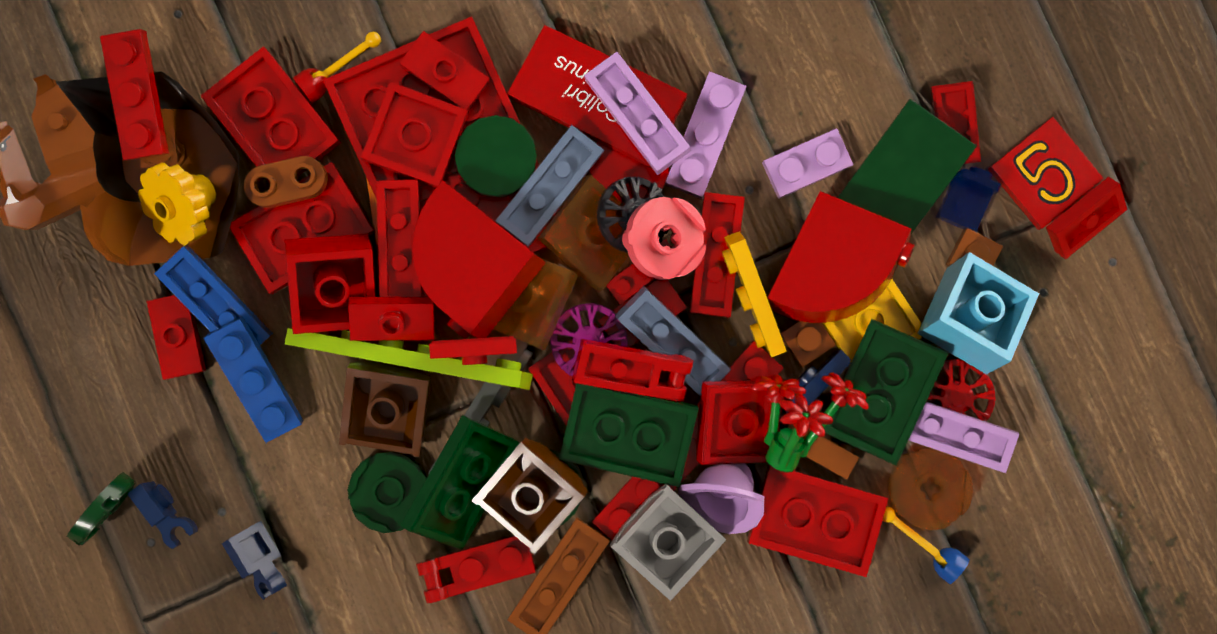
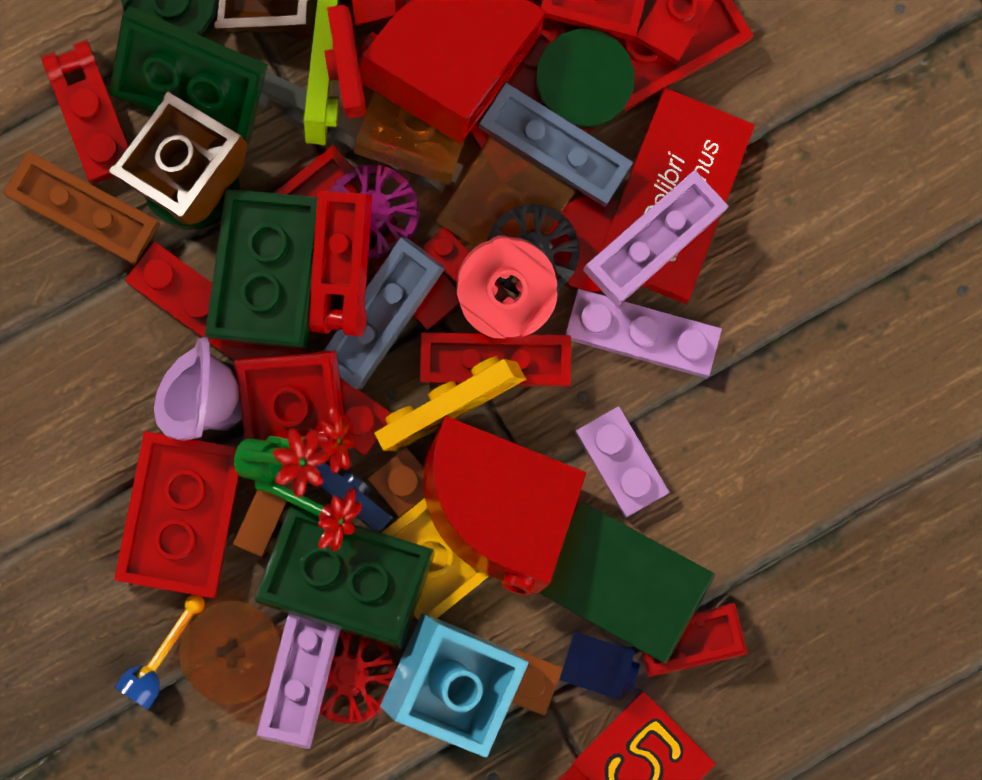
camera: 80 degrees right, 5 degrees down
(666, 541) = (137, 328): light grey slope -> none

